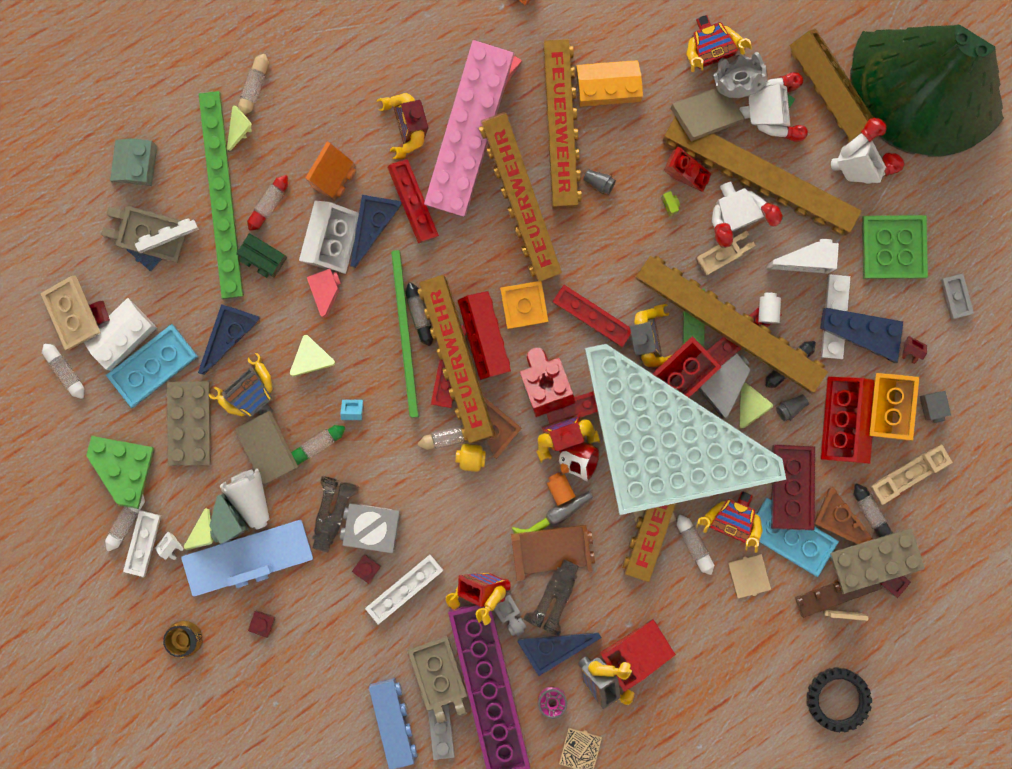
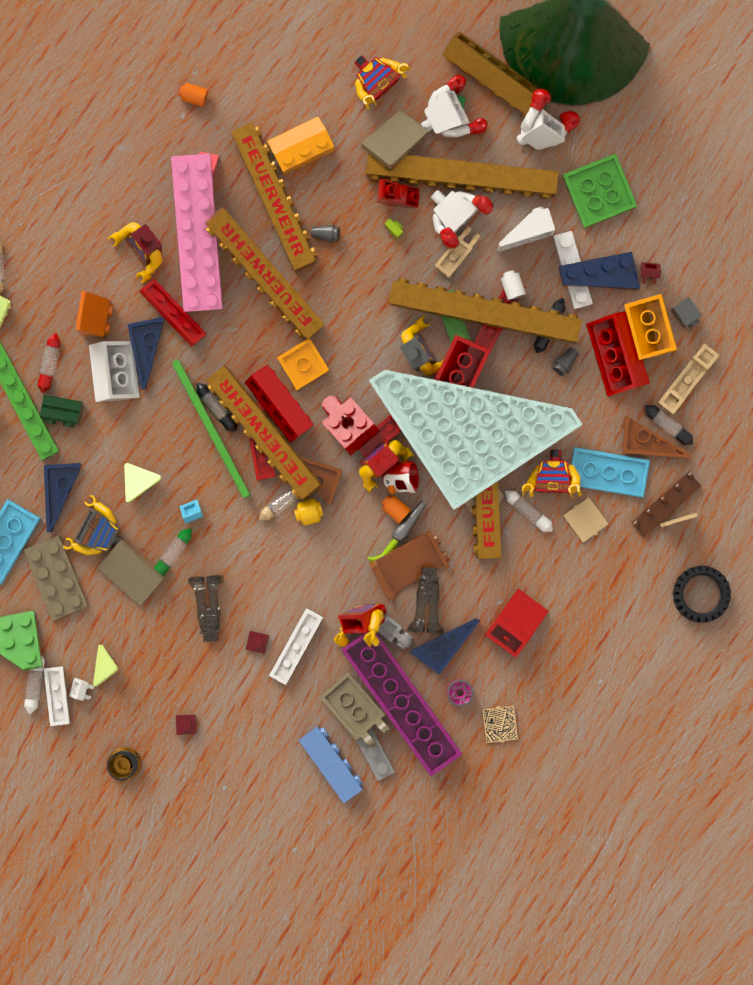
camera: 25 degrees left, 0 degrees up
(226, 521) = (122, 647): sand green slope -> none
(247, 558) = (151, 673): light blue bracket -> none
(248, 497) = (132, 620): white cone -> none
(324, 289) = (127, 417): coral slope -> none
(370, 527) = (246, 605): light grey brick -> none
(592, 315) = (365, 350): red plate -> none
(604, 683) = (495, 657): torso -> none
(726, 384) = (500, 364): light grey slope -> none
(750, 71) = (400, 98): light grey plate -> none
(752, 405) = (531, 373): yellowish green piece -> none
(795, 497) = (596, 435): dark red tile -> none
(877, 560) = (687, 463): dark tan plate -> none
(896, 586) = (711, 476): dark red plate -> none
(957, 296) = (669, 212): light grey plate -> none

